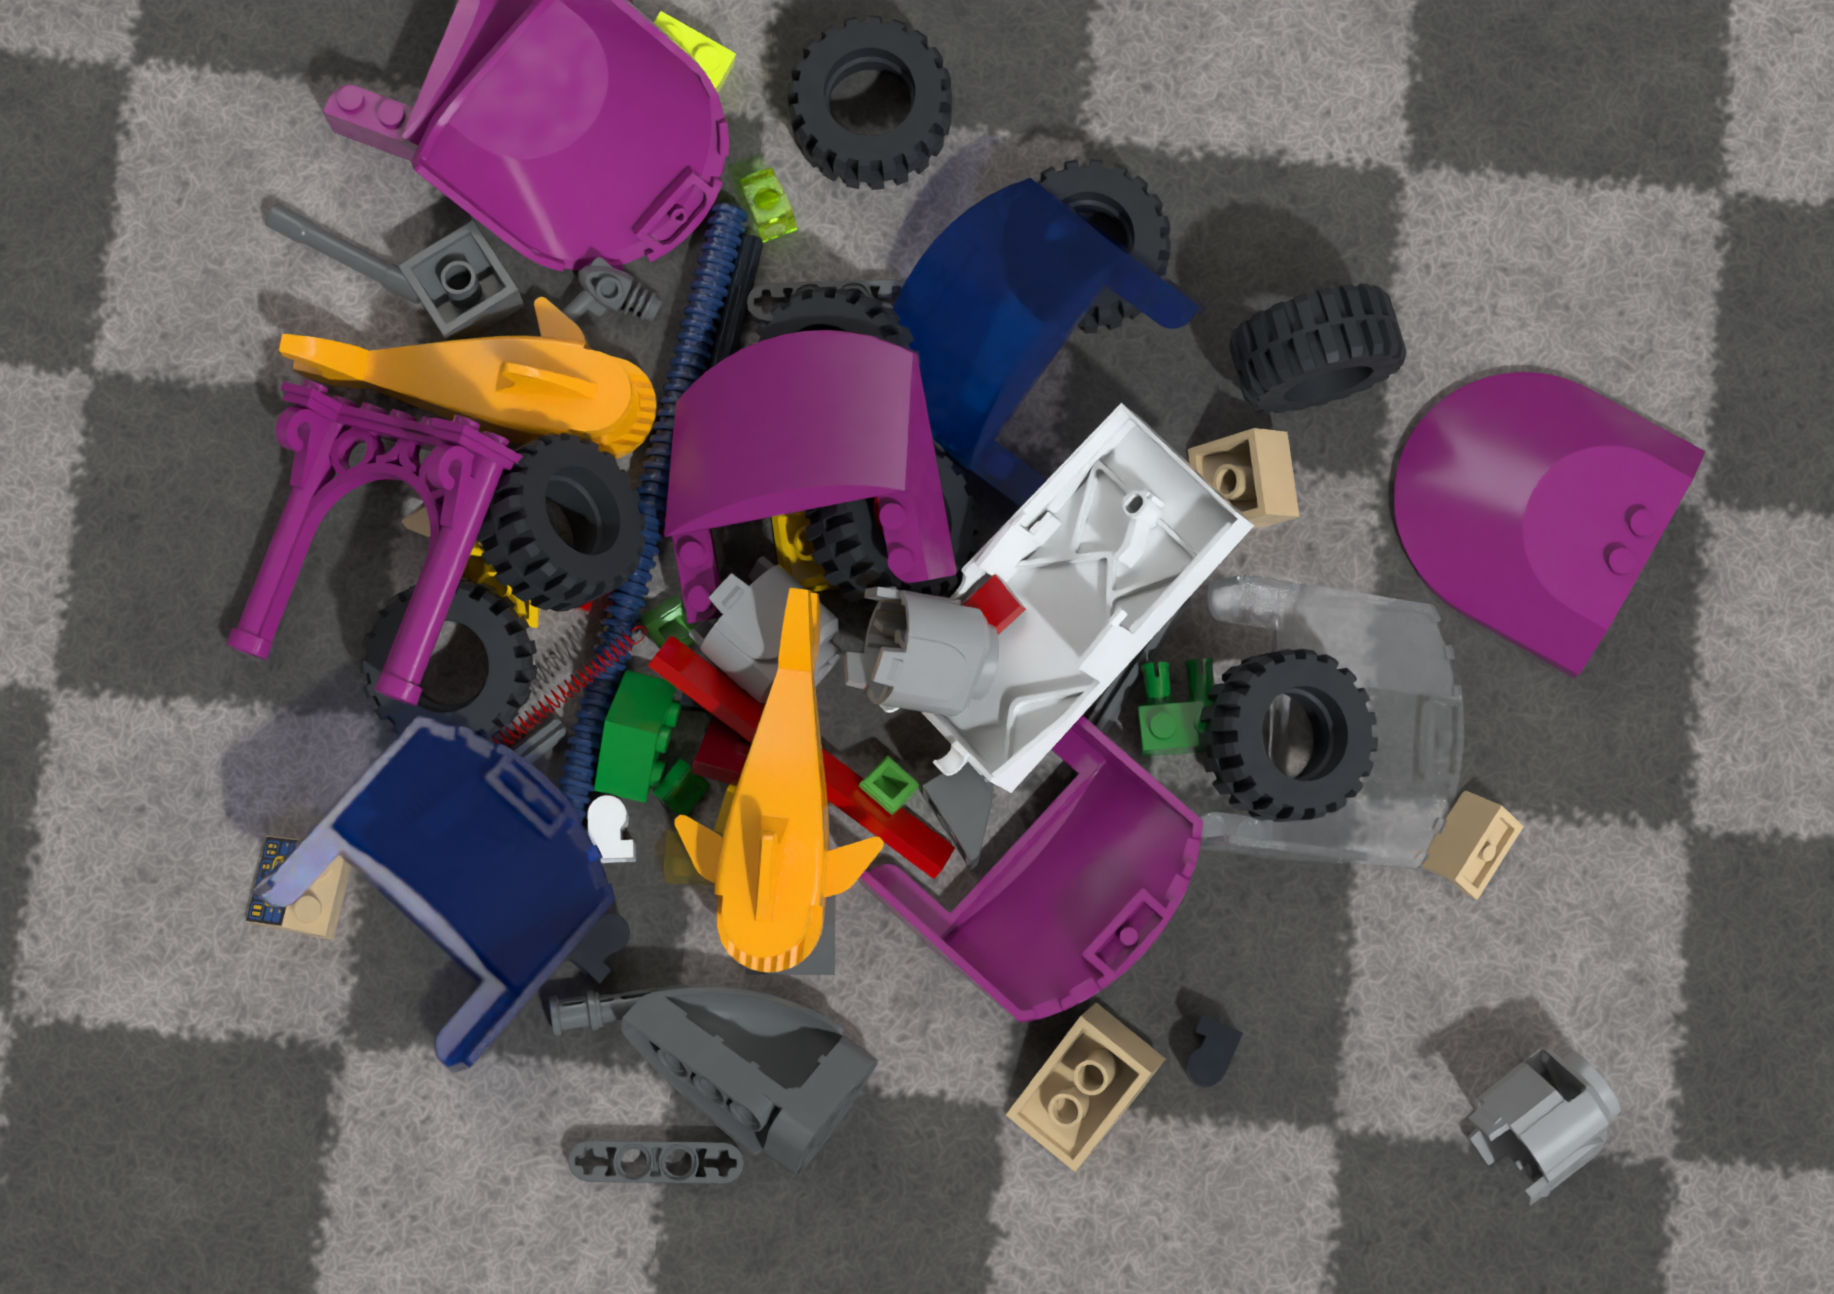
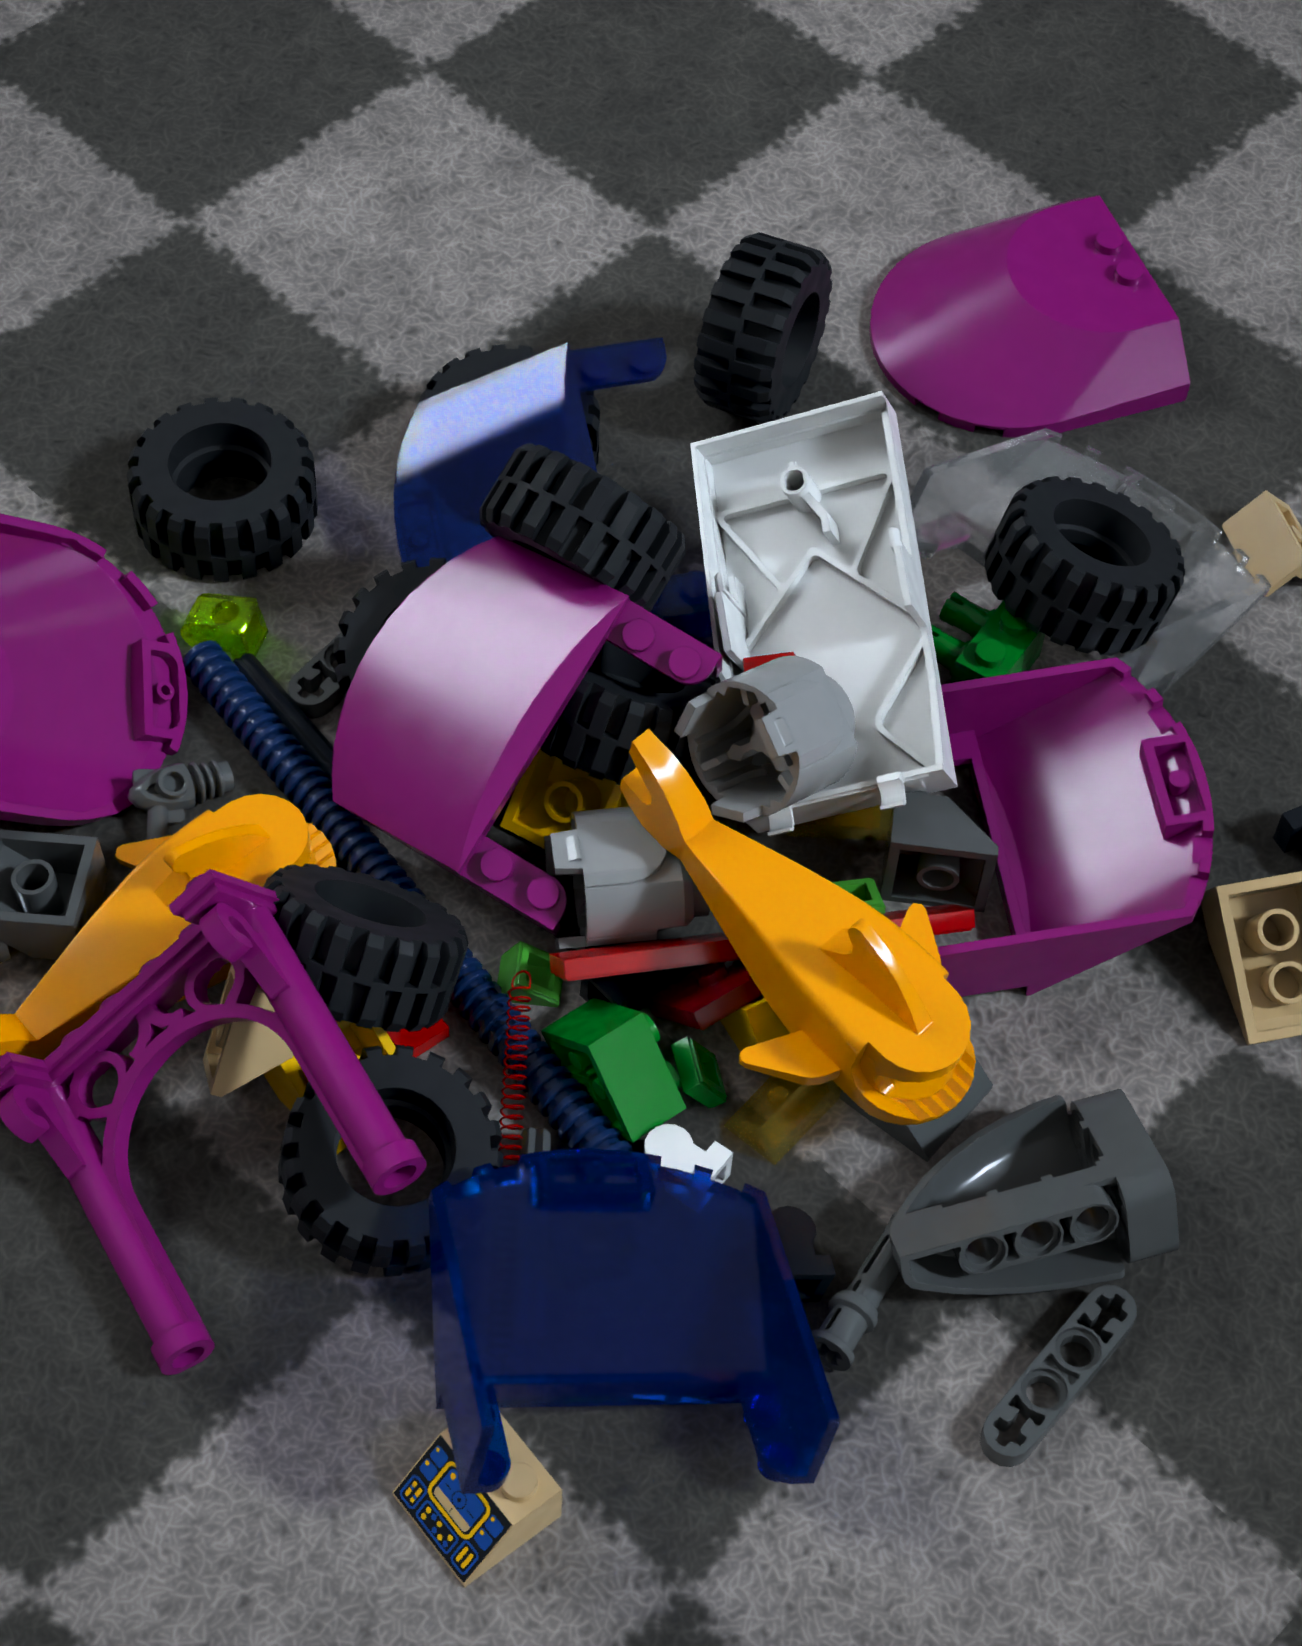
camera: 55 degrees left, 25 degrees down
(954, 407) = (583, 523): none -> black tyre

